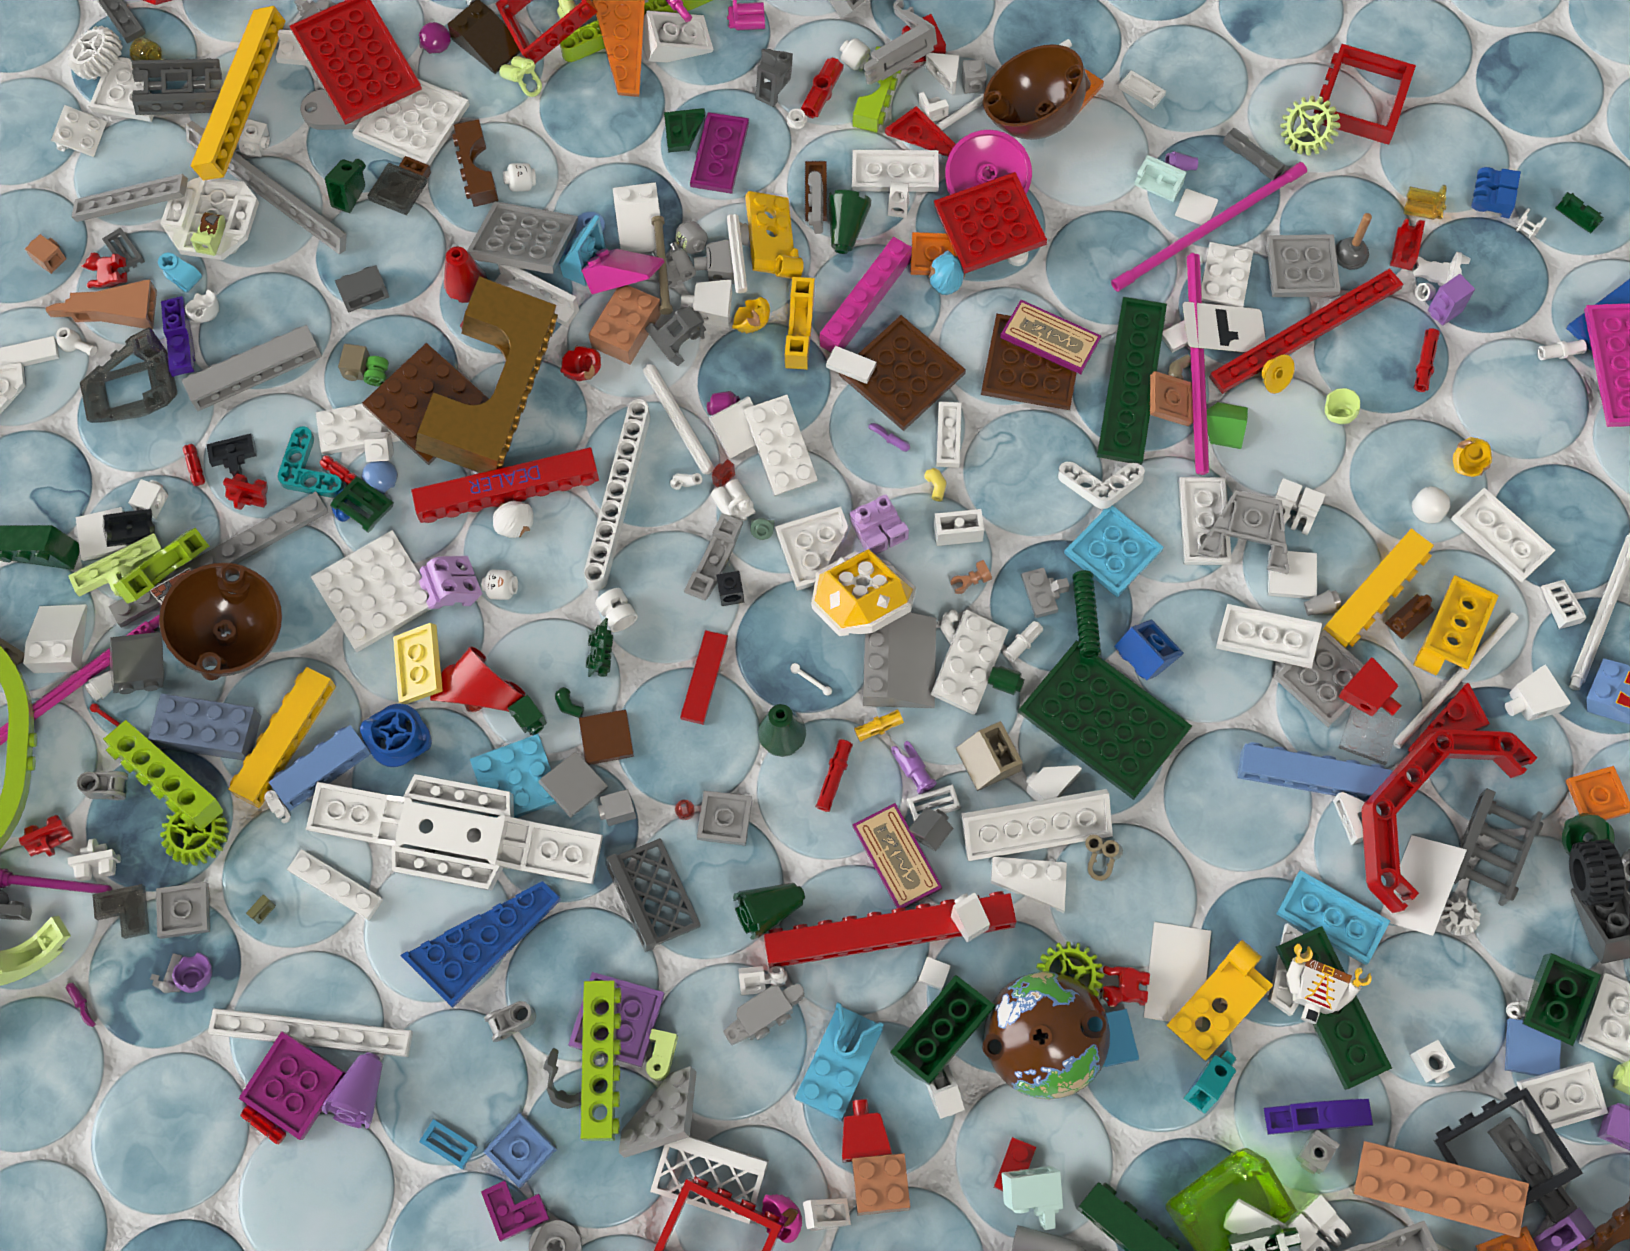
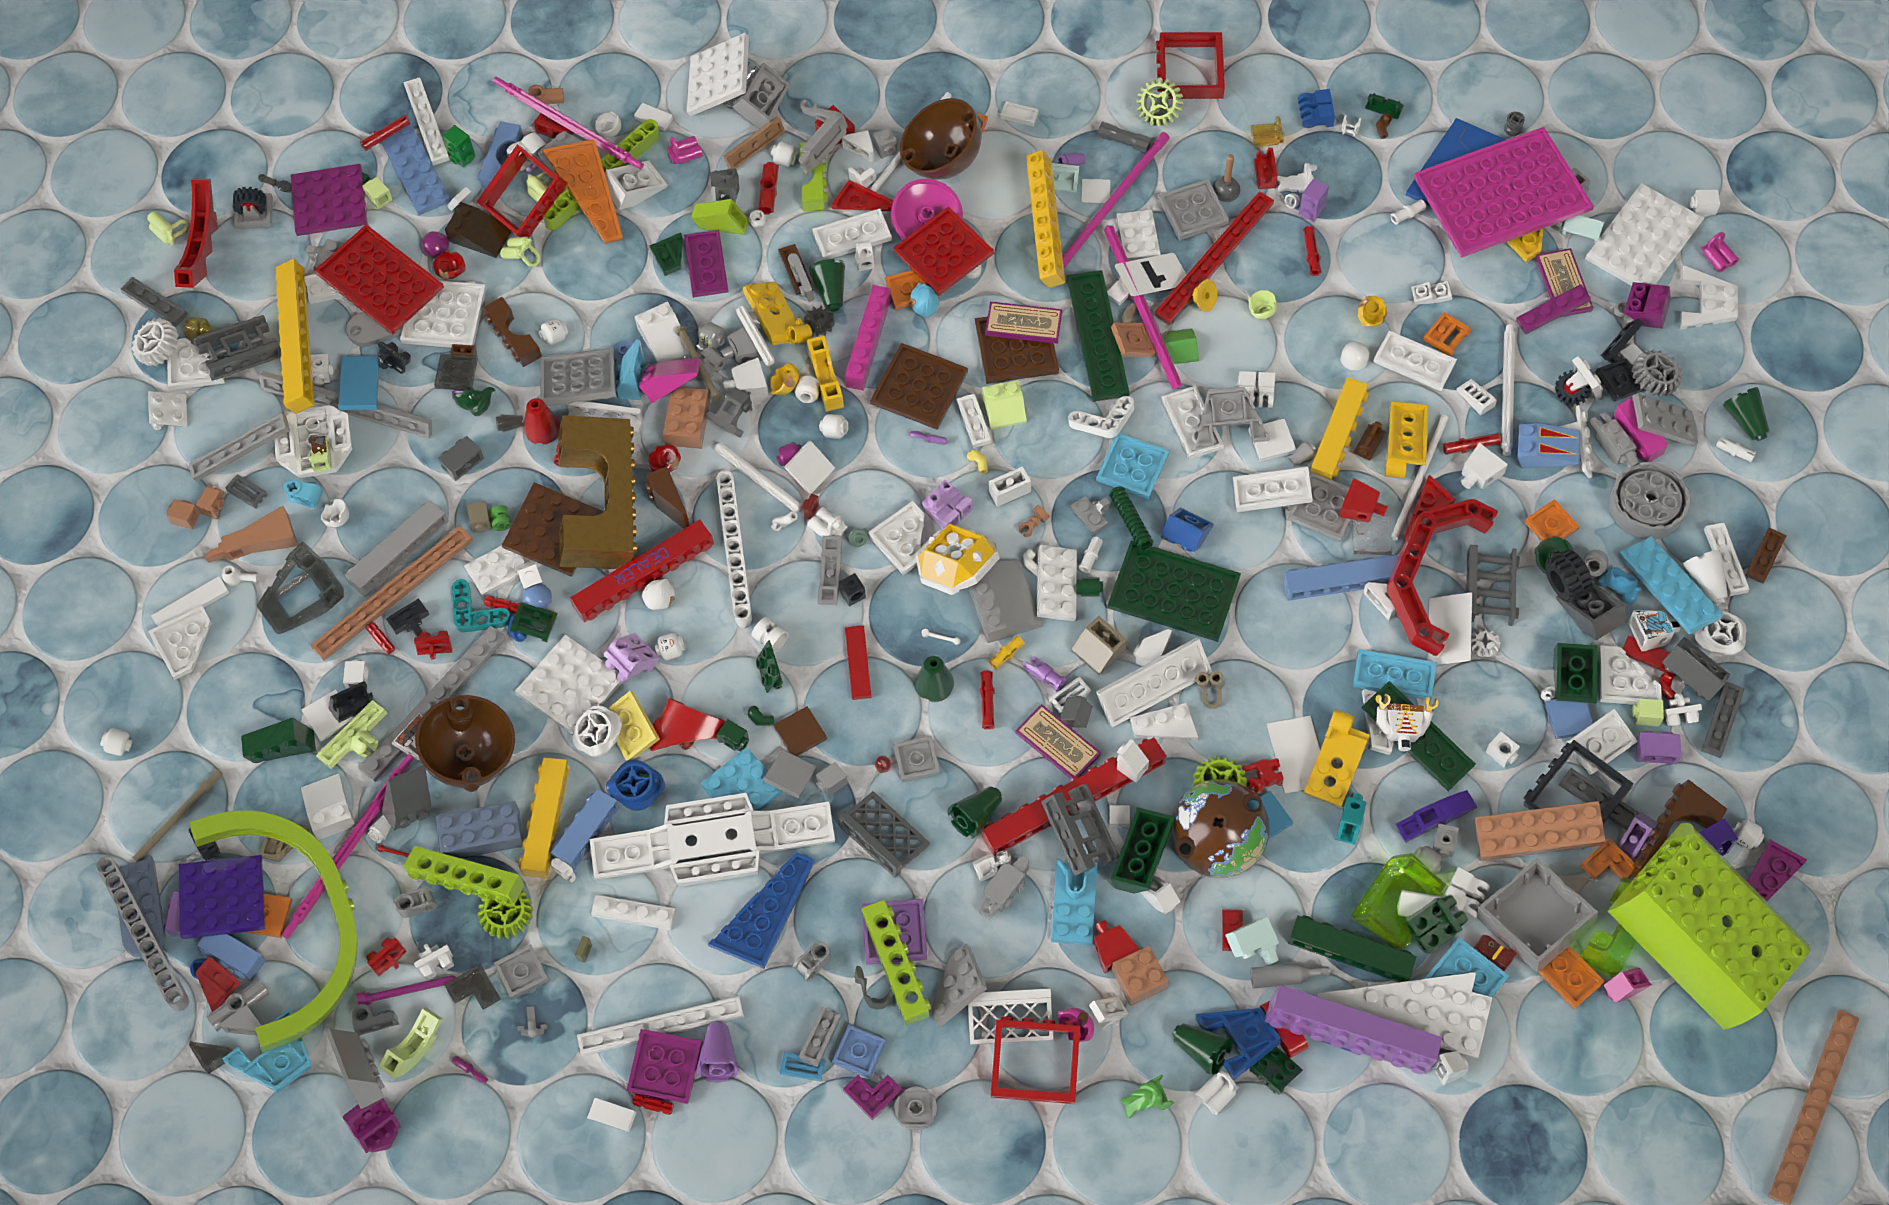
camera: 20 degrees left, 5 degrees down
(79, 248) = (211, 502): none -> nougat brick
(106, 270) = (242, 511): red animal -> none
(160, 565) = (397, 711): lime arch -> none
(178, 335) = (324, 543): dark purple slope -> none
(192, 973) = (551, 1013): medium lavender hair -> none
(211, 1121) = (611, 1115): none -> white slope
(226, 417) = (391, 593): none -> nougat plate
(287, 167) = (359, 383): none -> dark azure tile
(333, 149) = (391, 358): none -> black hips
(345, 184) = (412, 373): dark green torso -> none
(378, 656) = (597, 731): none -> white piece
(402, 228) = (473, 400): none -> dark green hair
(429, 264) = (509, 422): none -> clear smoke cone
(438, 66) = (449, 265): none -> red hair
(480, 1117) = (819, 1037): none -> light grey hinge
(564, 400) = (665, 496): none -> reddish brown slope
(660, 1064) = (940, 949): yellowish green leg -> none
(755, 103) = (721, 216): none -> lime slope
(773, 335) = (807, 389): none -> white head
(780, 445) = (848, 470): white plate -> none
(786, 384) = (833, 426): none -> white head
(818, 259) = (820, 320): none -> clear smoke gear
(826, 31) = (754, 143): none -> medium nougat tile
(851, 364) = (878, 392): white tile -> none
(859, 982) = (1069, 834): none -> dark grey fence
(991, 427) = (1004, 404): none -> yellowish green slope
(1122, 222) = (1045, 219): none -> yellow brick
(1287, 1168) = (1429, 858): none -> light grey head
(1525, 659) = (1464, 445): none -> red pin
(1550, 508) = (1442, 330): none -> orange plate
(1554, 459) = (1431, 294): none -> white slope
(1569, 234) = (1382, 124): none -> reddish brown arm

